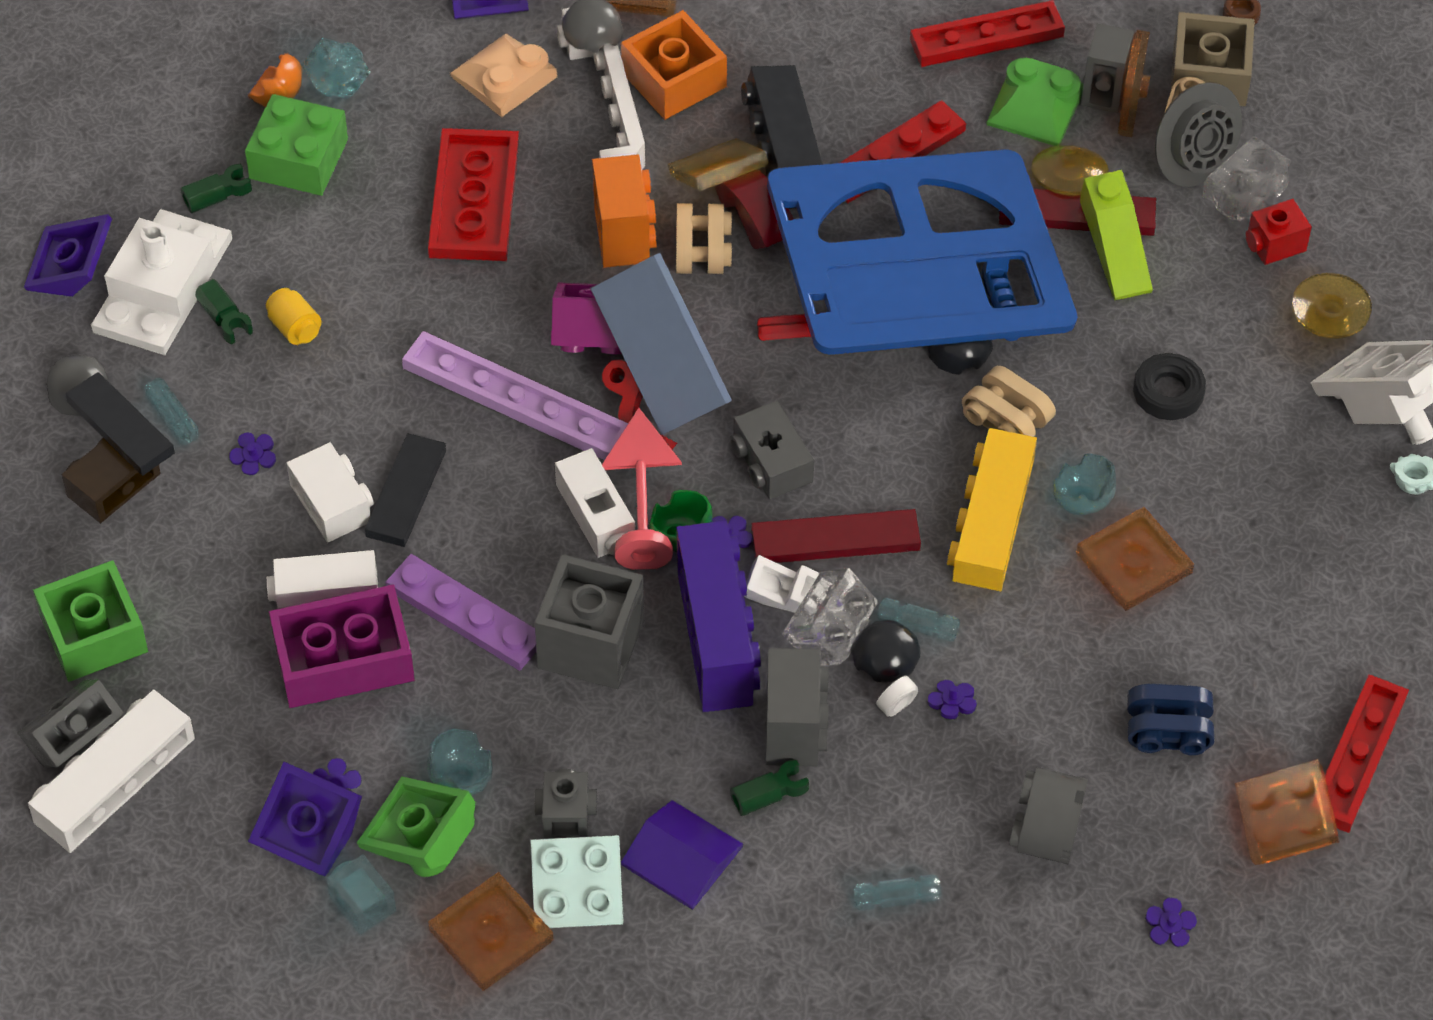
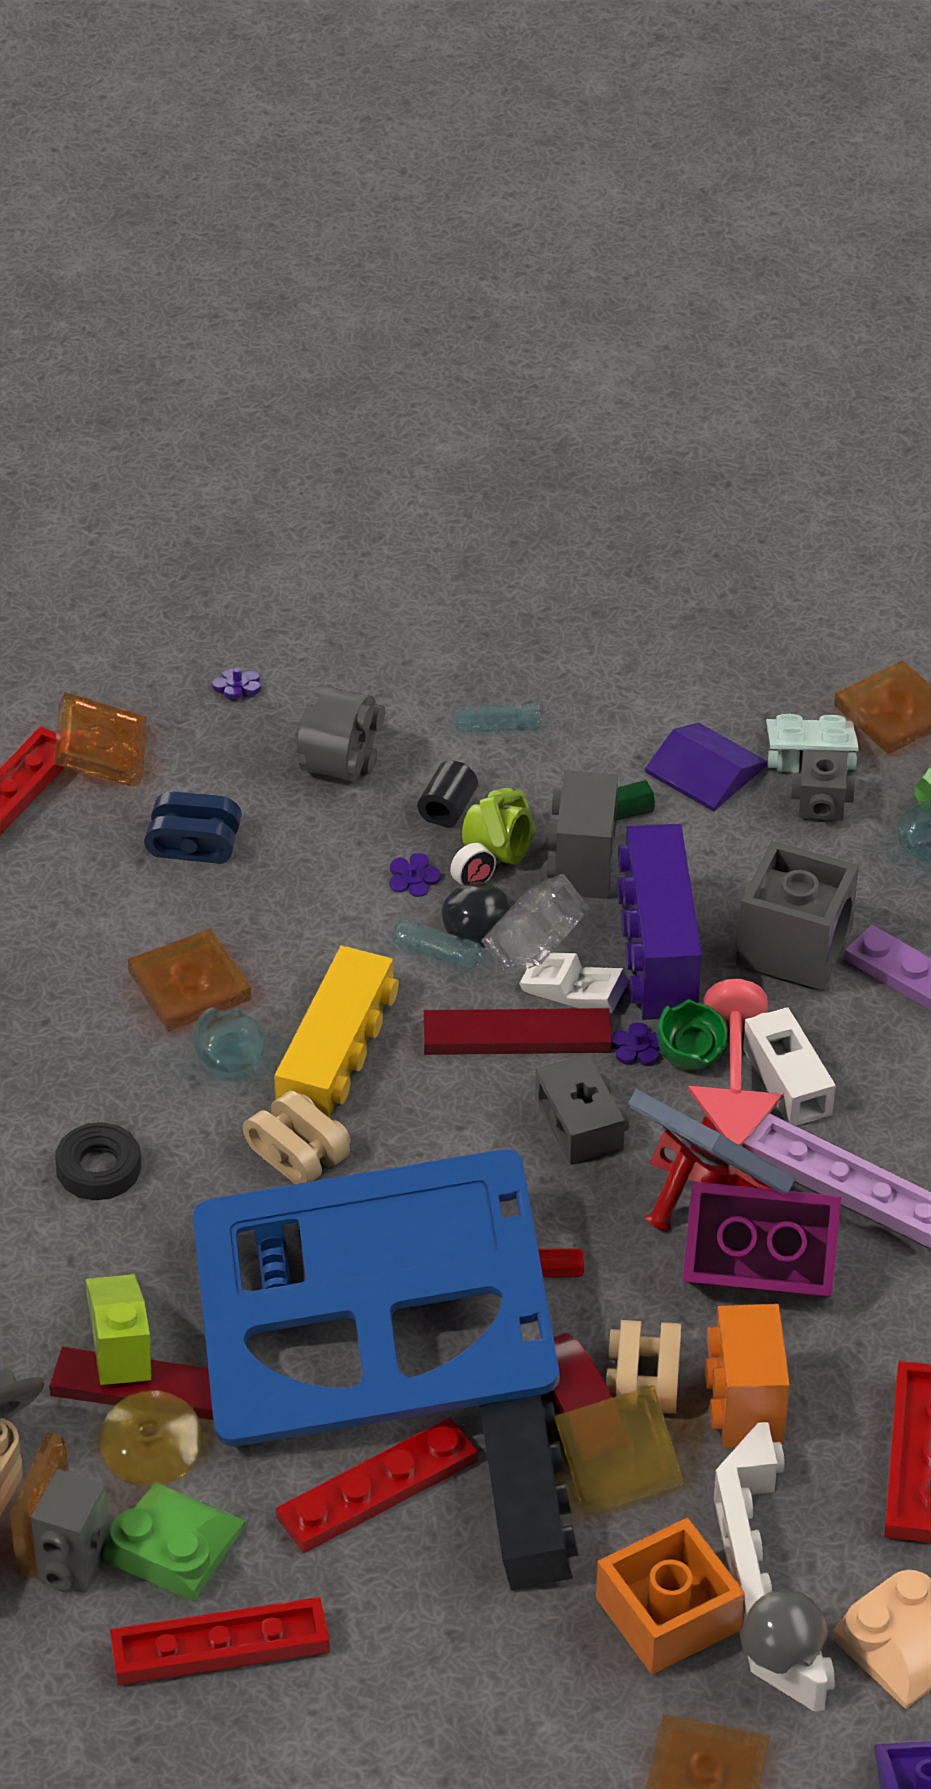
camera: 175 degrees left, 10 degrees down
(877, 731) = (500, 828): none -> lime piece
(933, 778) = (447, 794): none -> black brick

